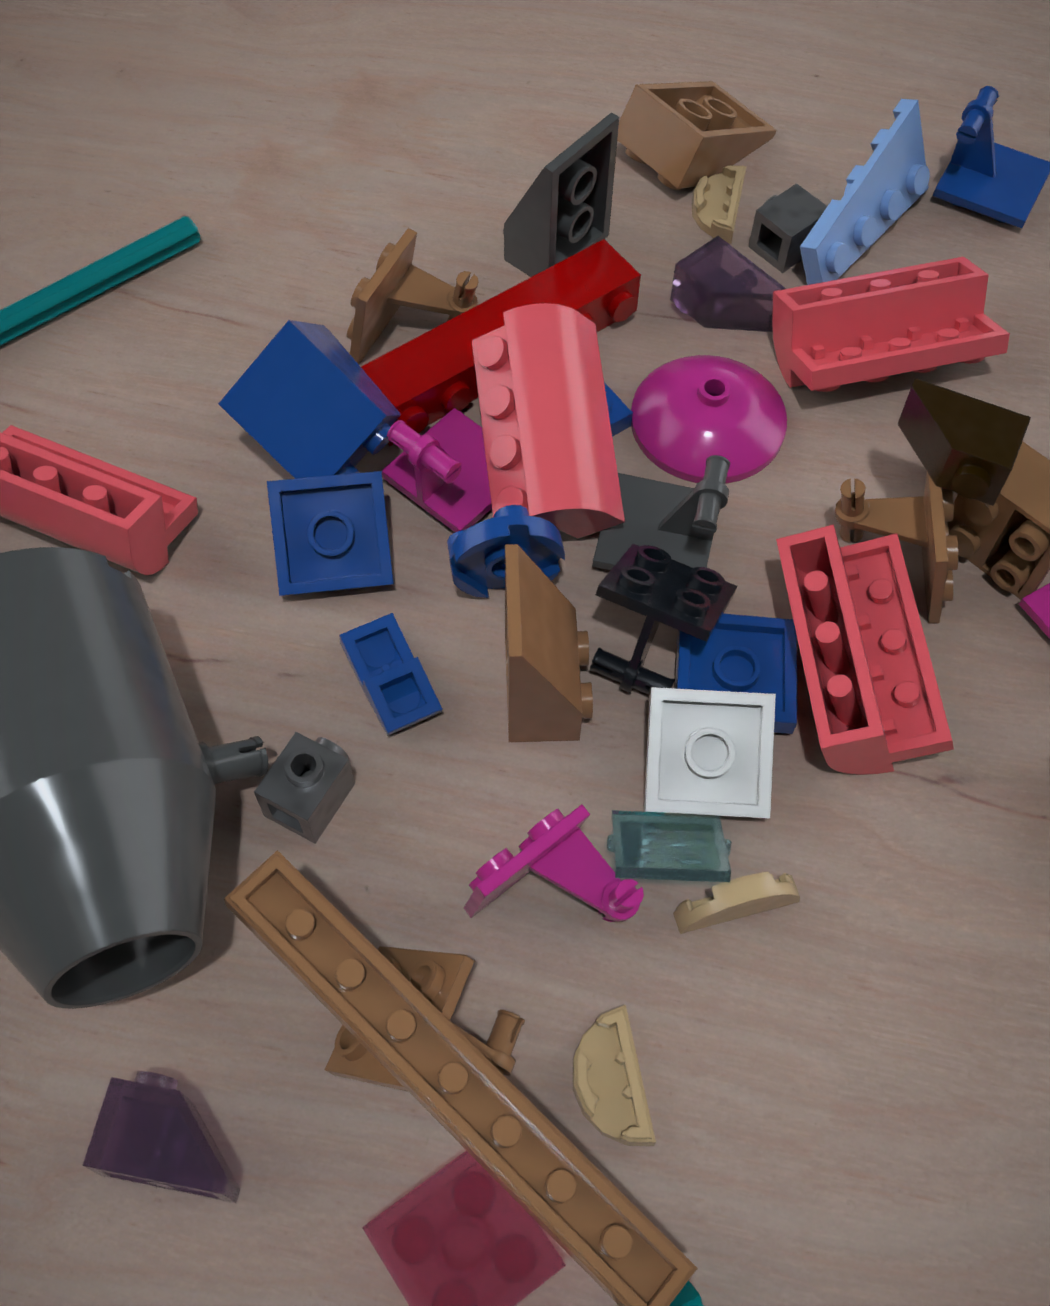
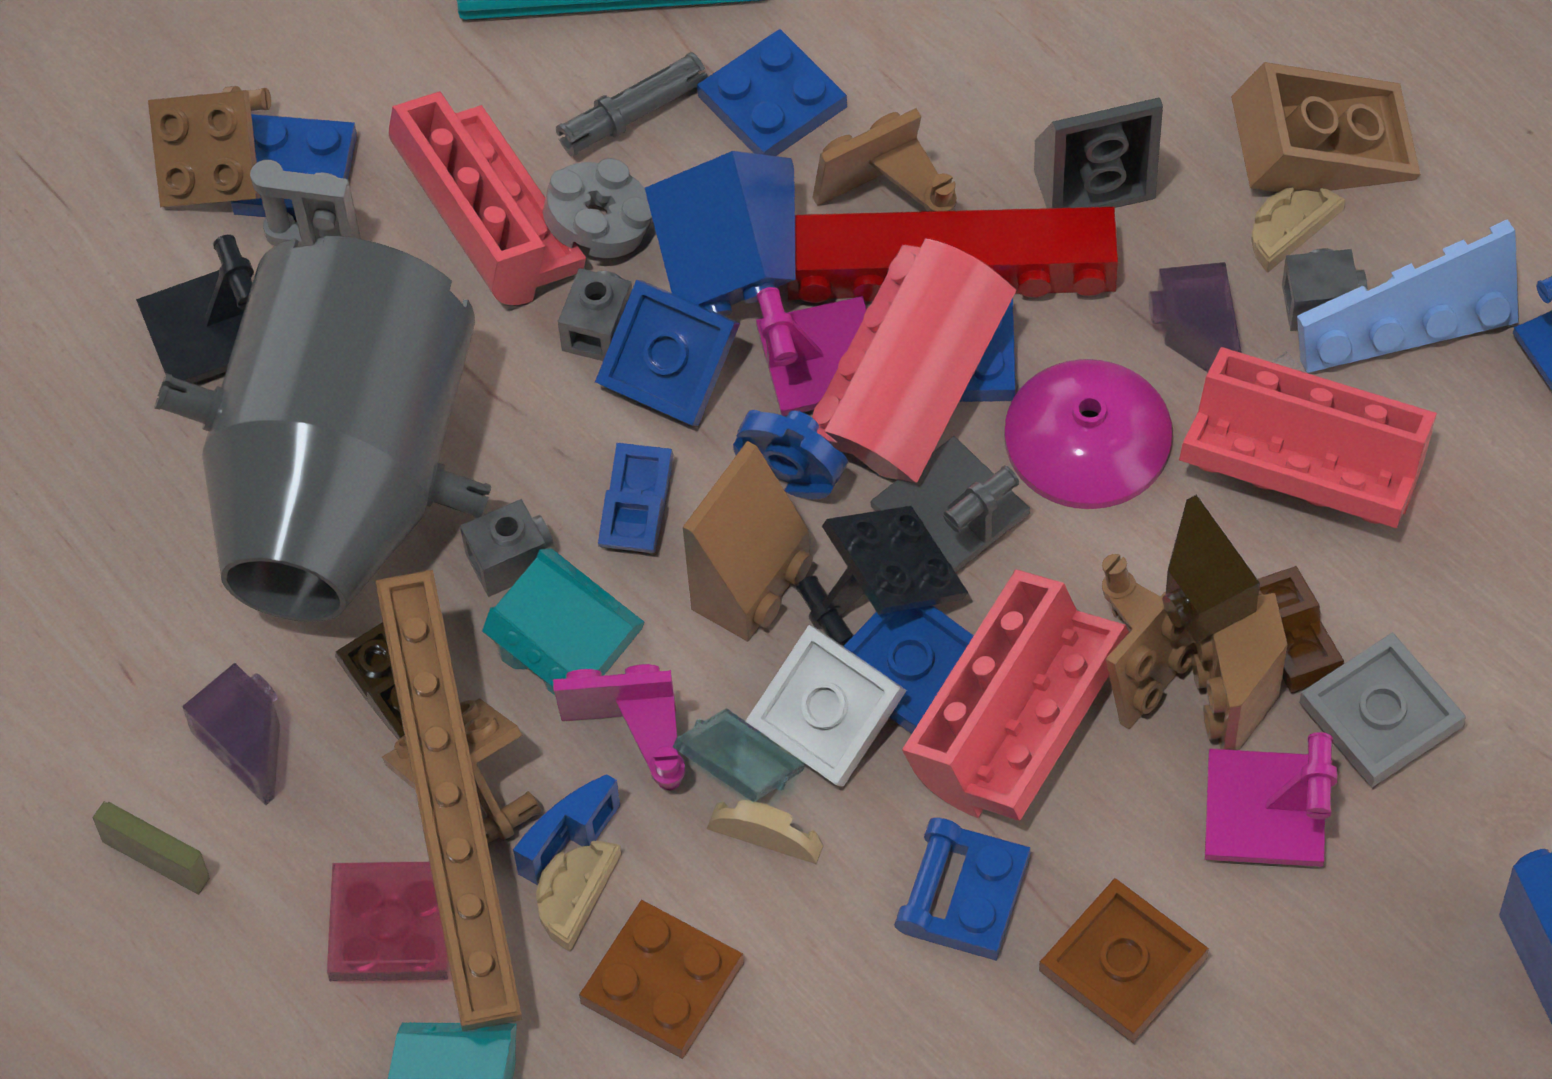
camera: 40 degrees right, 0 degrees up
(136, 376) = (614, 113): none -> dark grey pin
(177, 453) = (602, 185): none -> light grey plate
(239, 539) = (592, 312): none -> flat silver brick
(255, 300) = (772, 95): none -> blue plate
(264, 987) = (369, 668): none -> dark brown slope
(411, 830) = (559, 621): none -> teal slope
(571, 1009) = (575, 818): none -> blue slope
(765, 1115) = (661, 979): none -> dark orange plate
(961, 837) = (981, 896): none -> blue plate

